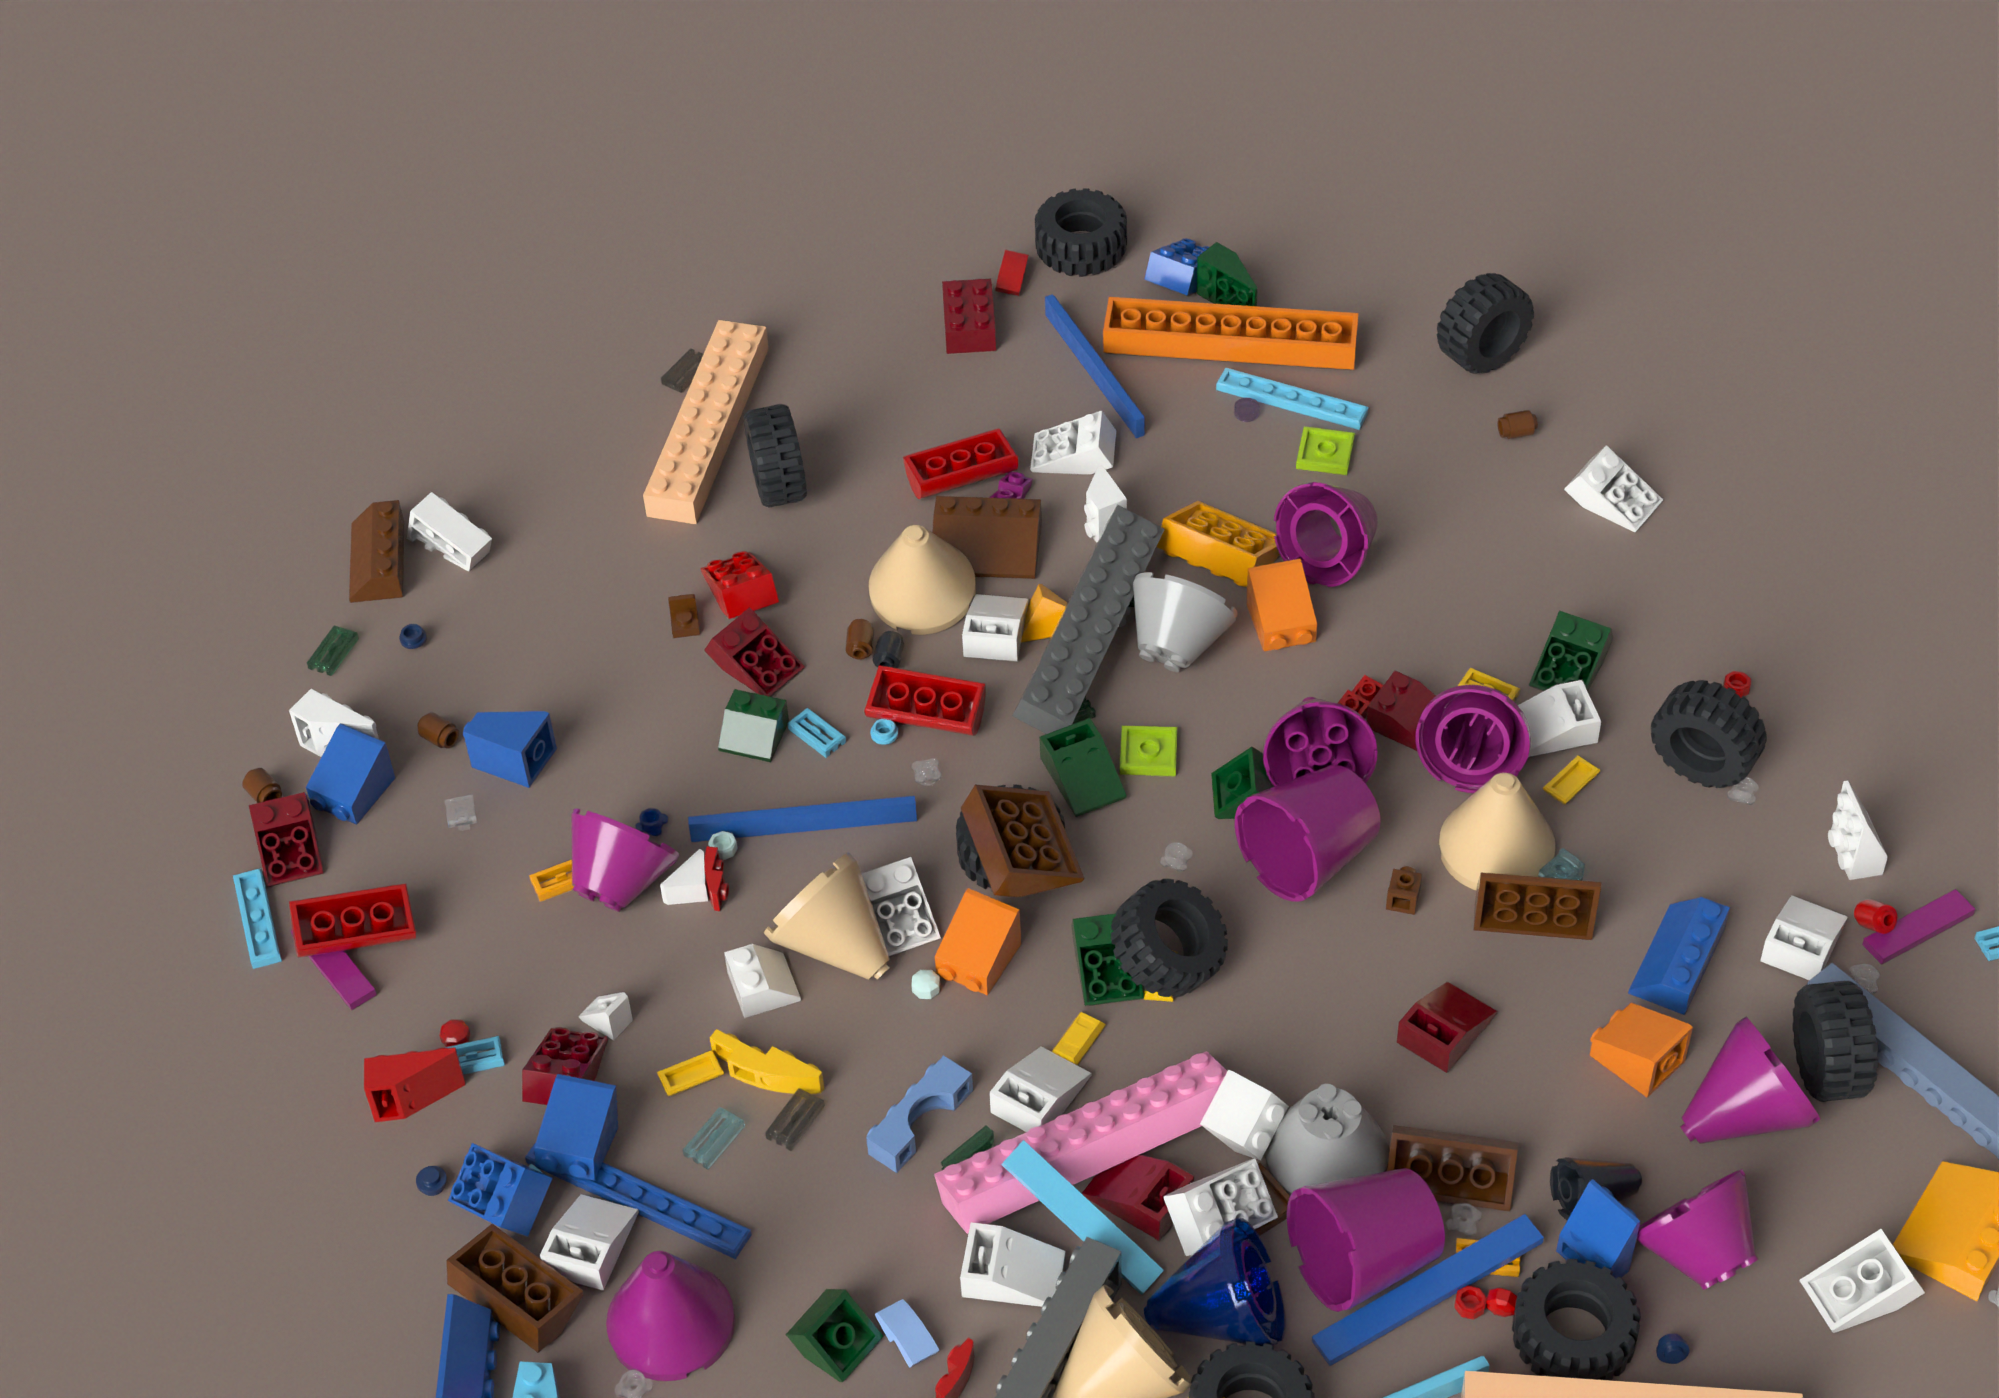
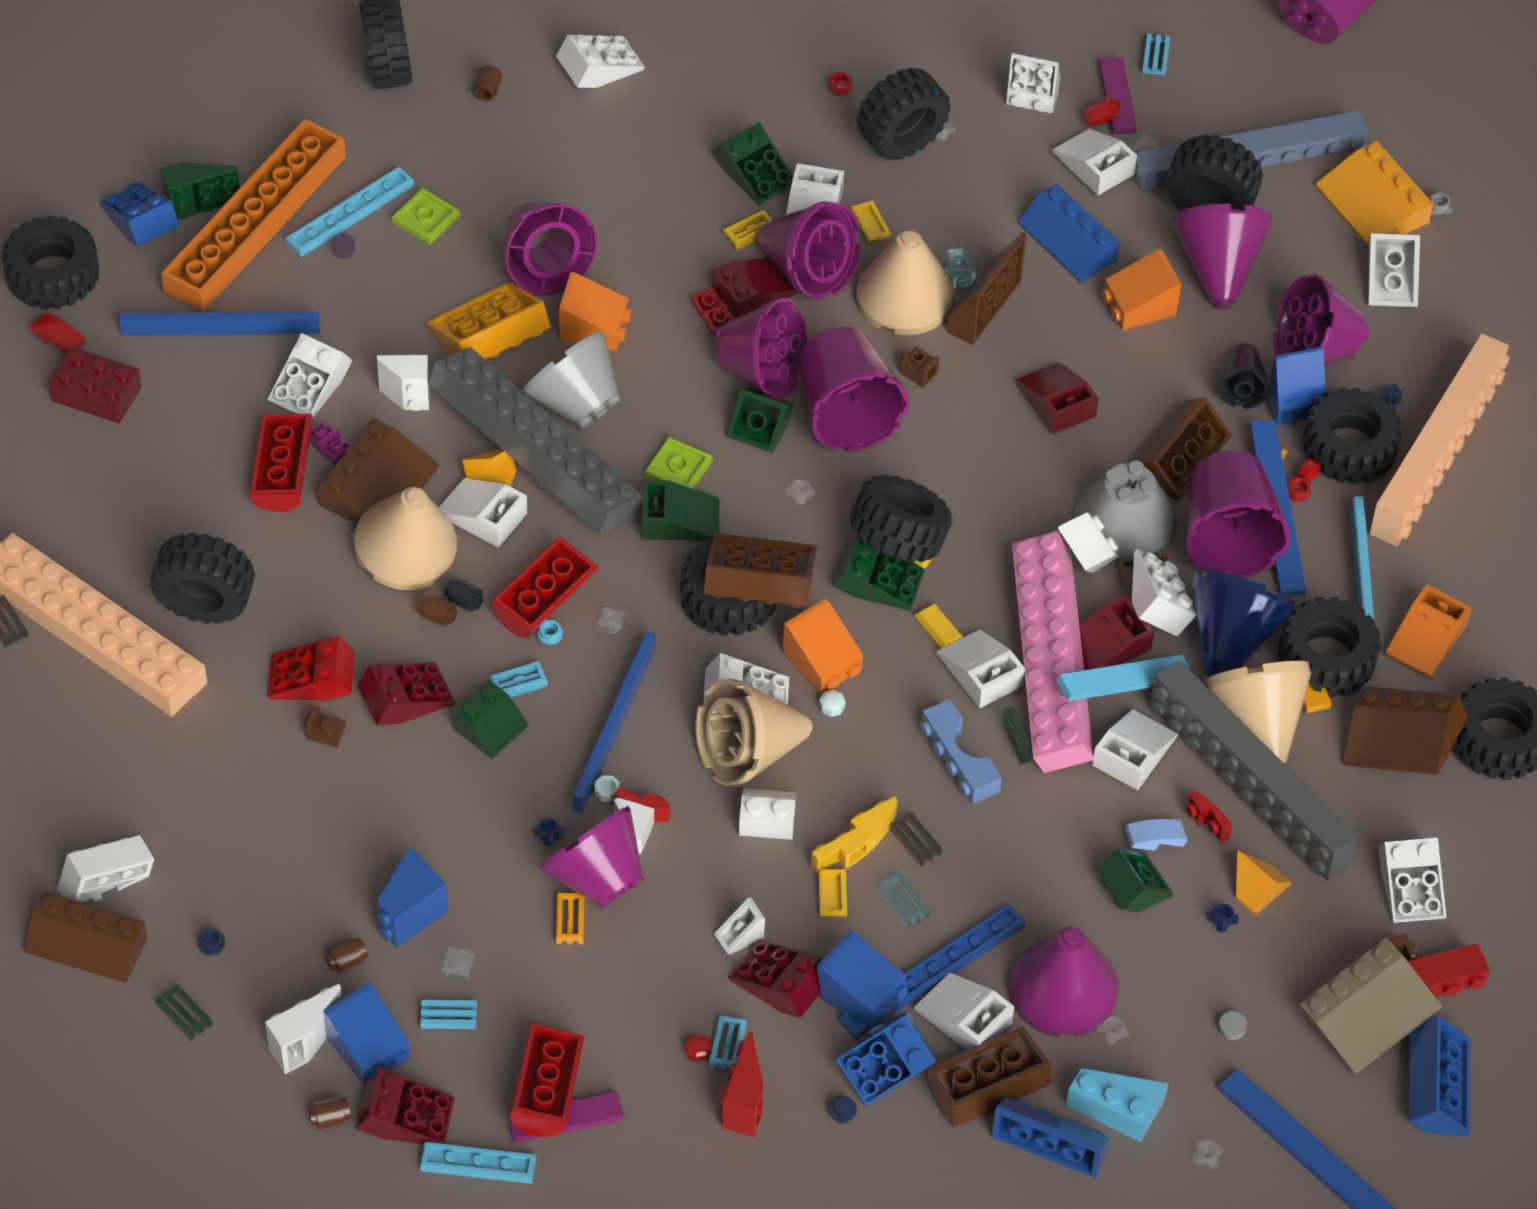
camera: 70 degrees left, 5 degrees up
(404, 815) = (448, 1010): none -> medium azure tile

